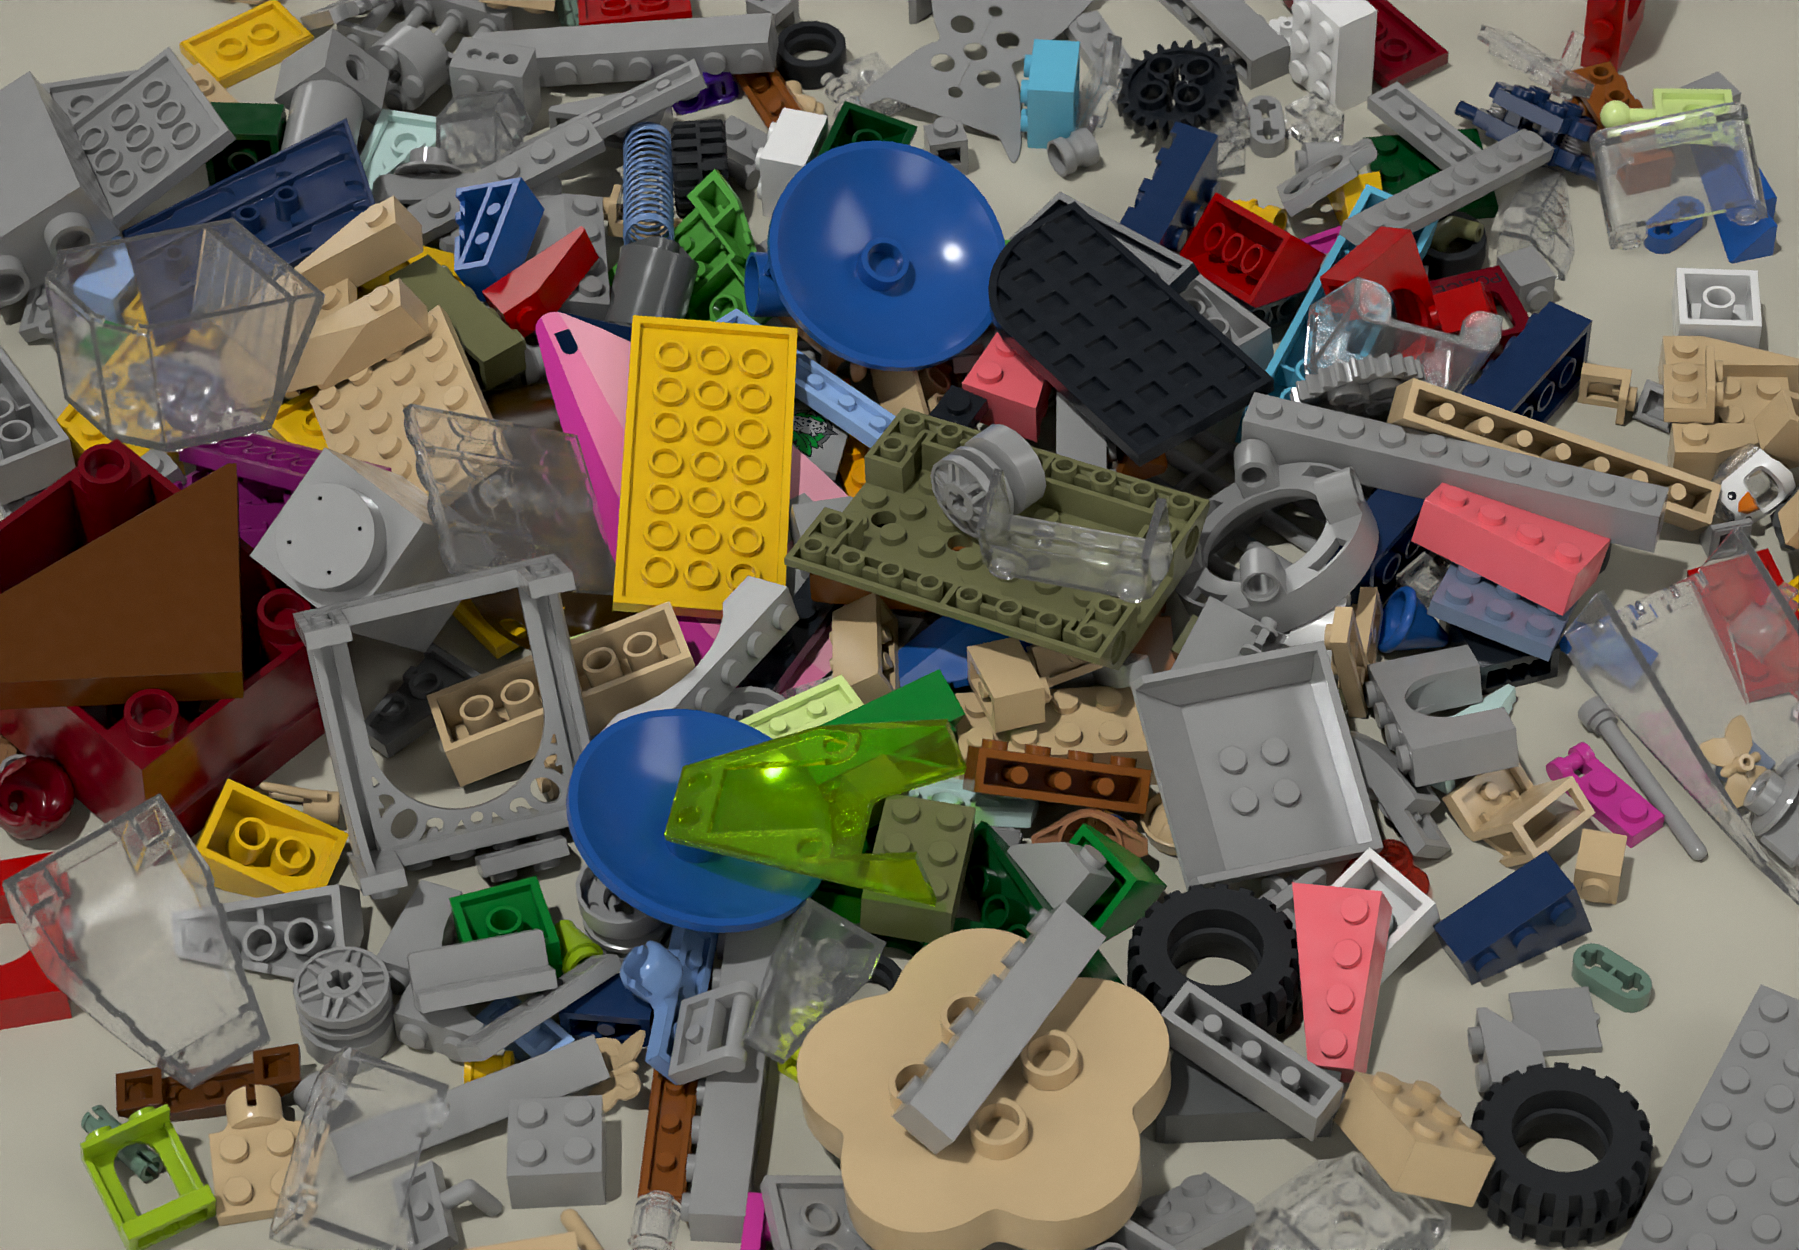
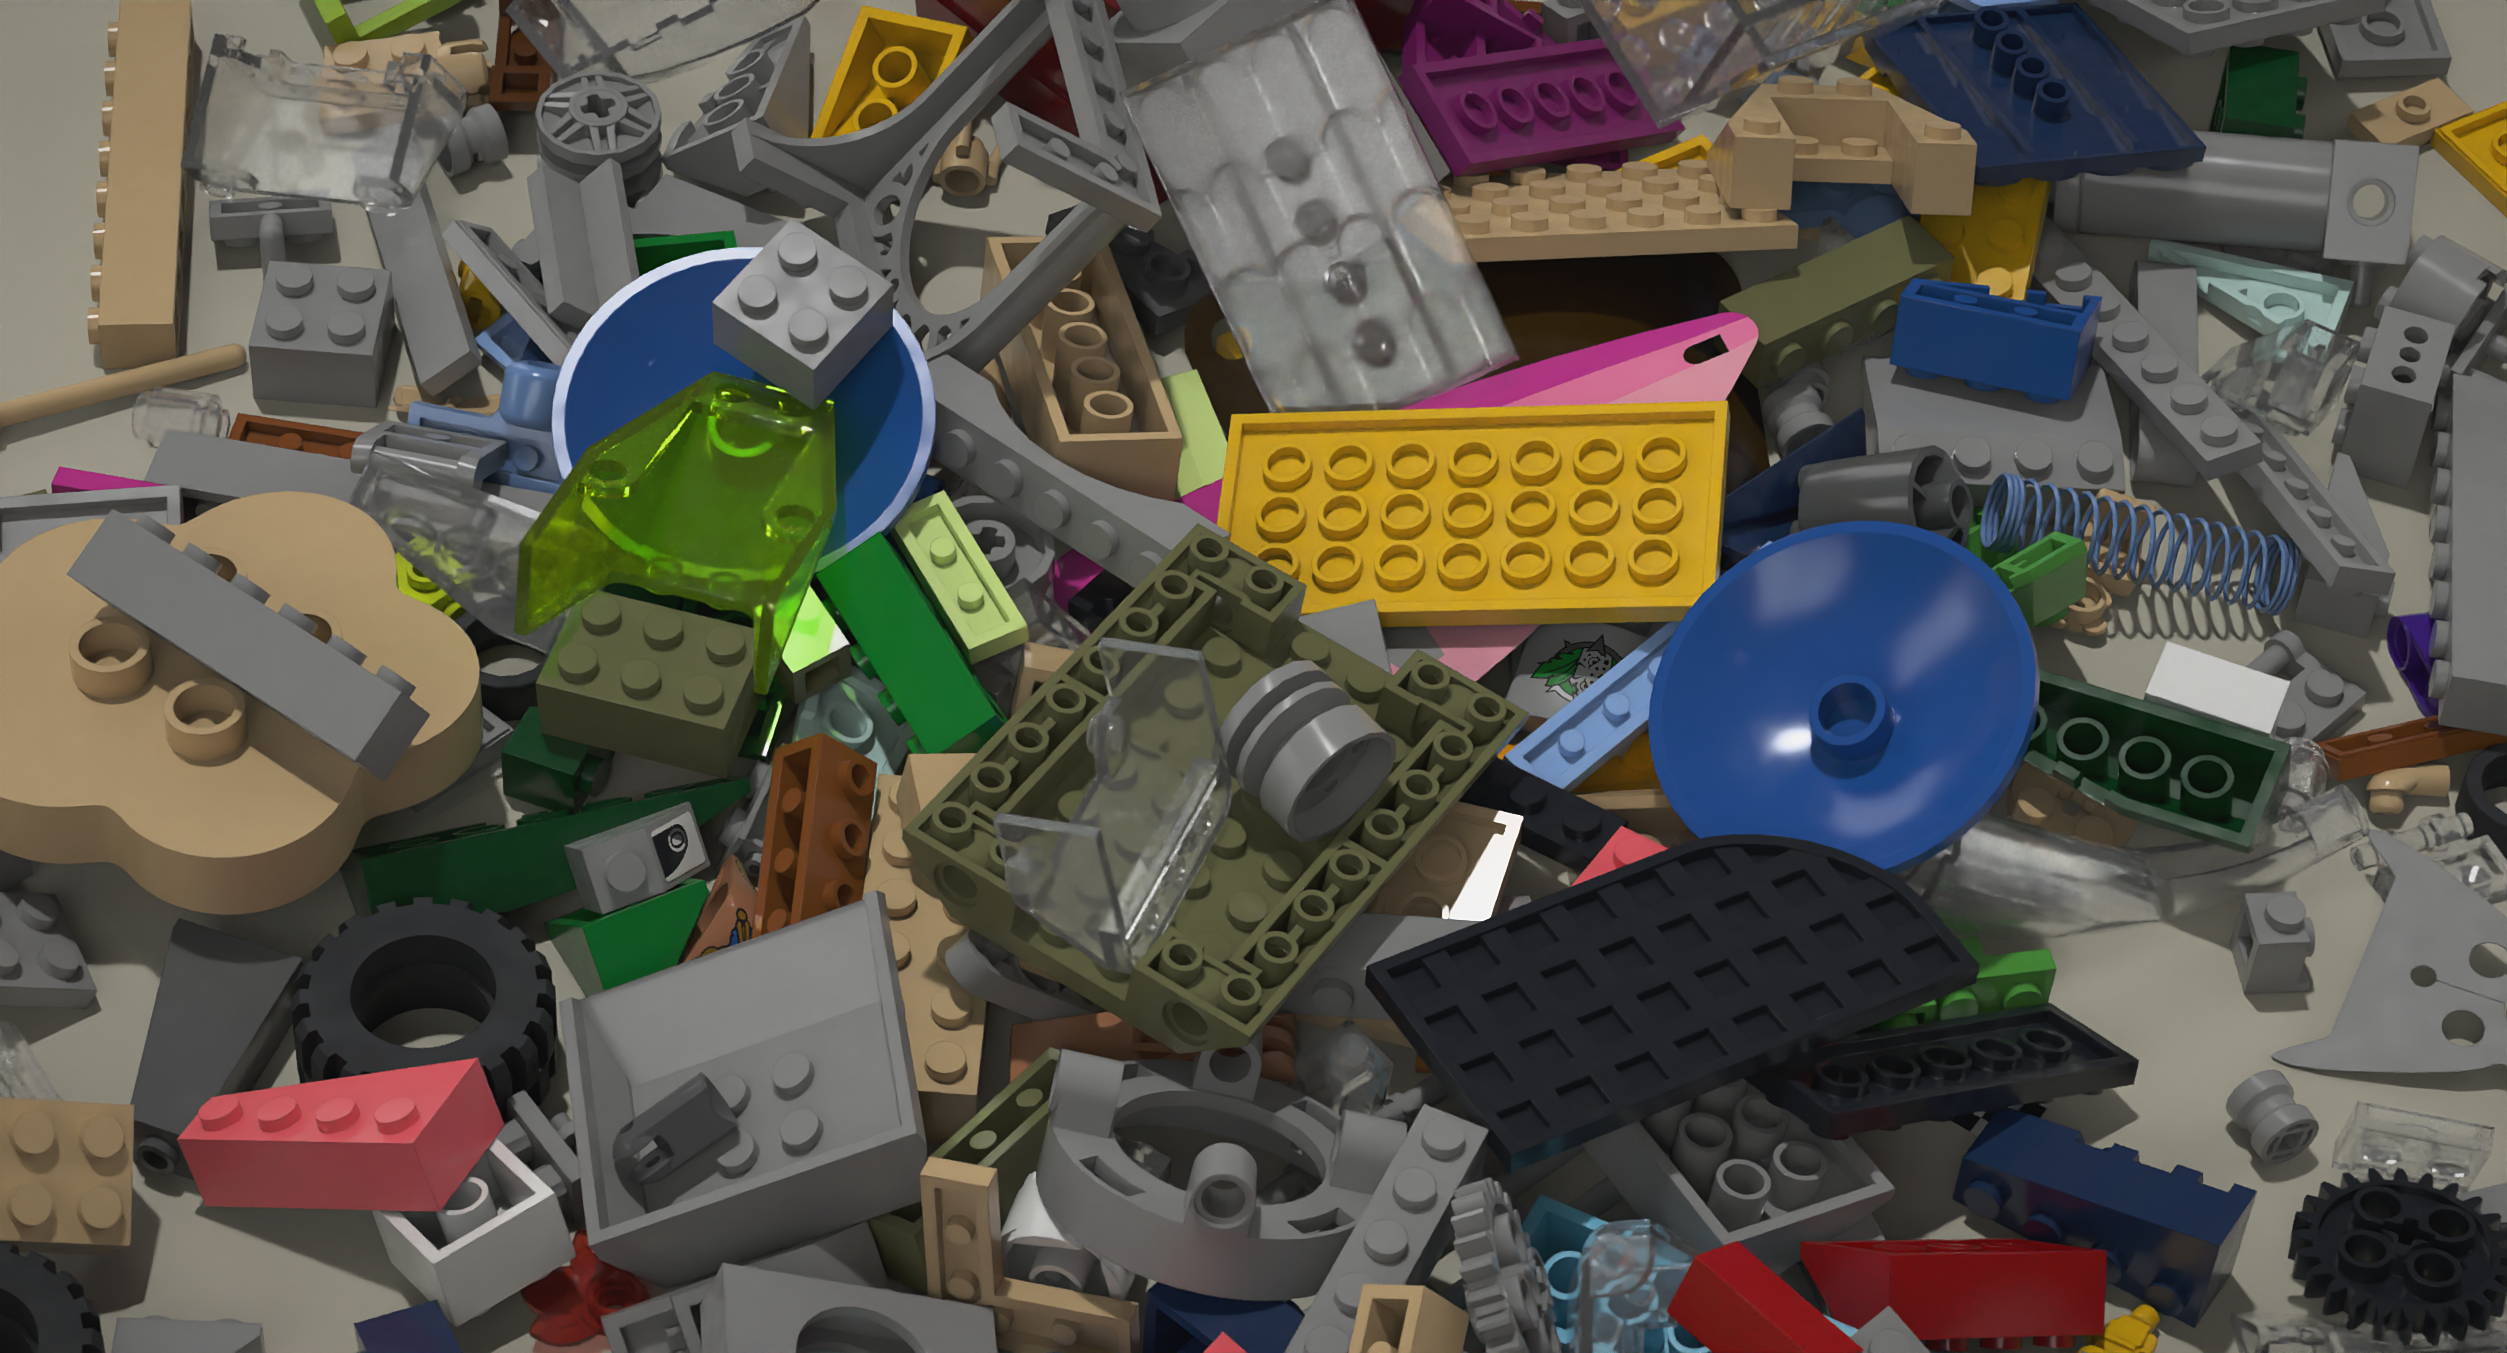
camera: 90 degrees right, 0 degrees up
(428, 161) = (2213, 317): light grey piece -> none
(542, 282) = (1888, 378): red slope -> none
(643, 757) = (802, 313): none -> light grey brick
(696, 152) = (2187, 591): black tyre -> none
(1050, 92) = (2392, 1062): medium azure brick -> none
(1227, 634) = (992, 1088): light grey hinge -> none
(1251, 1061) = (187, 984): light grey brick -> none
(1283, 819) = (679, 1125): none -> dark grey piece

